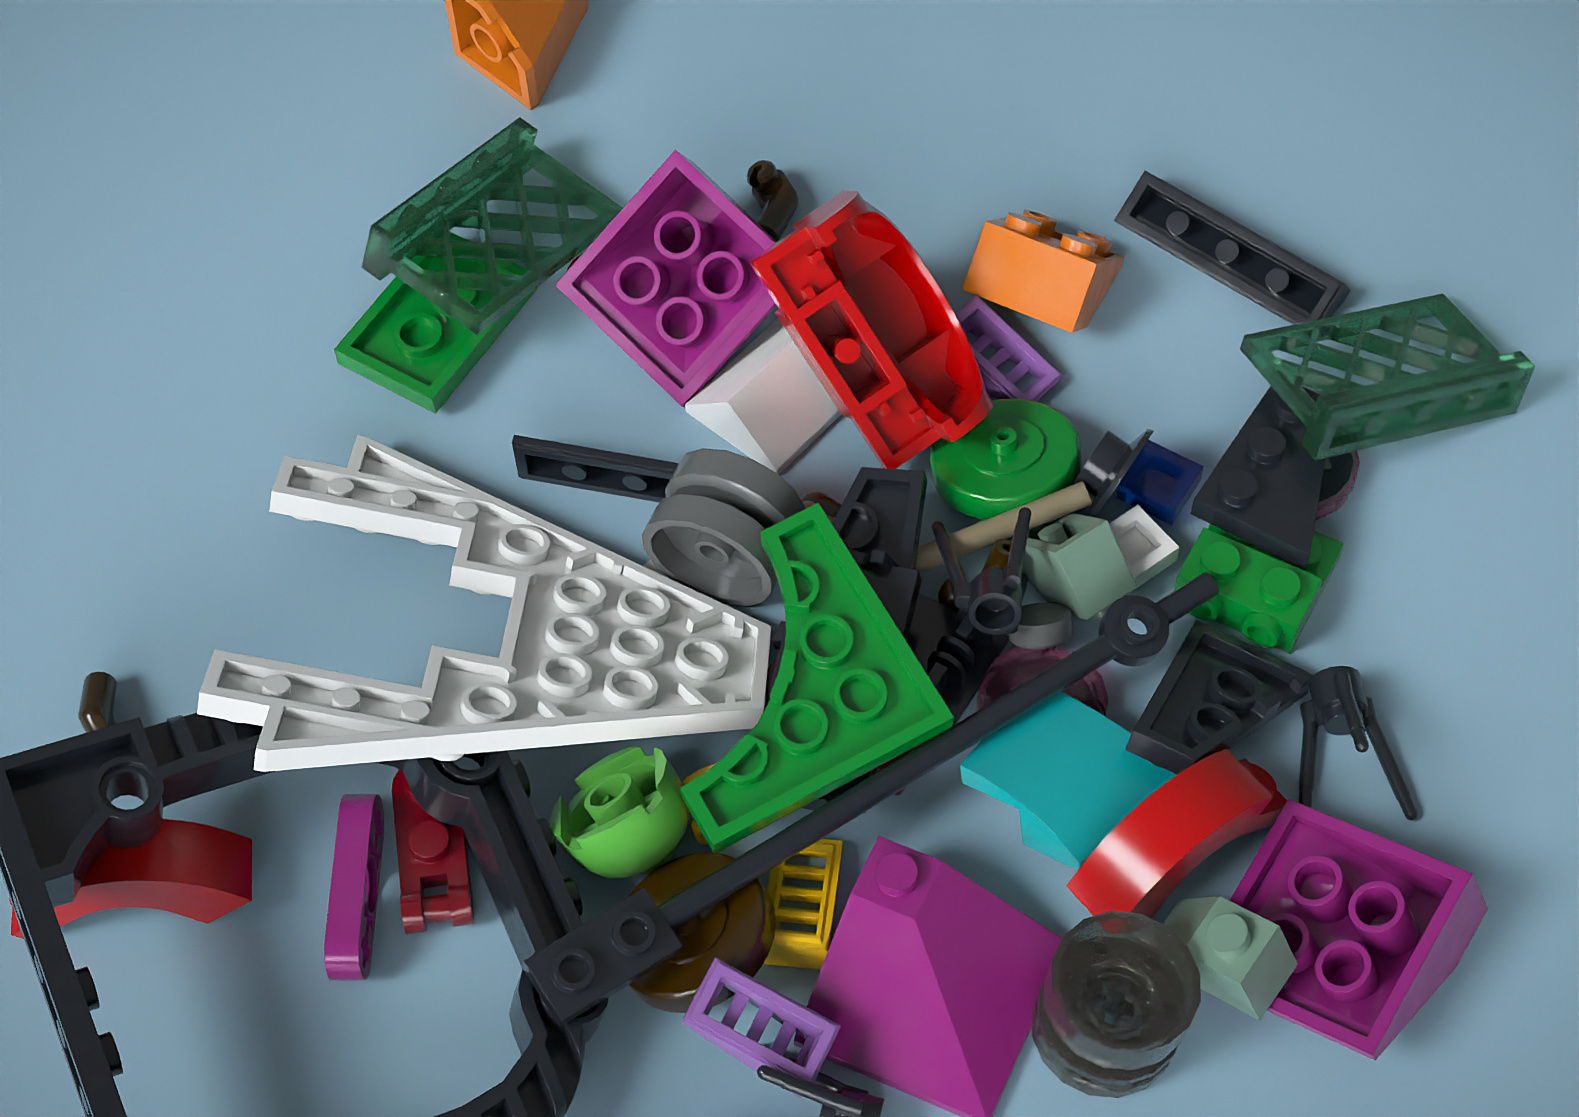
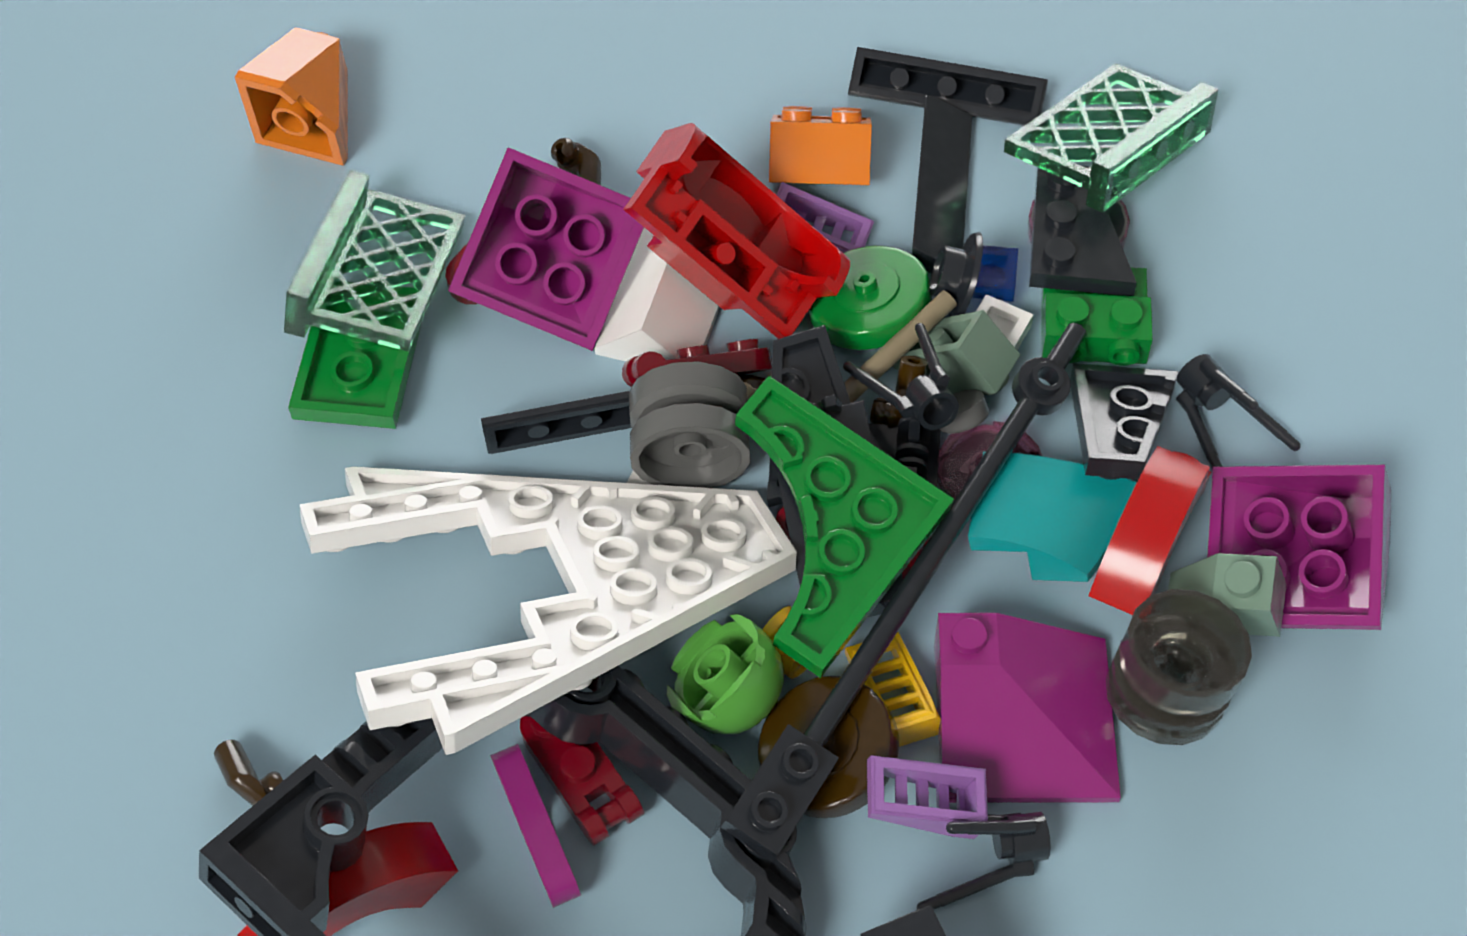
camera: 25 degrees left, 0 degrees up
(830, 474) = (742, 358): none -> dark red plate
(1161, 356) = (941, 180): none -> black slope

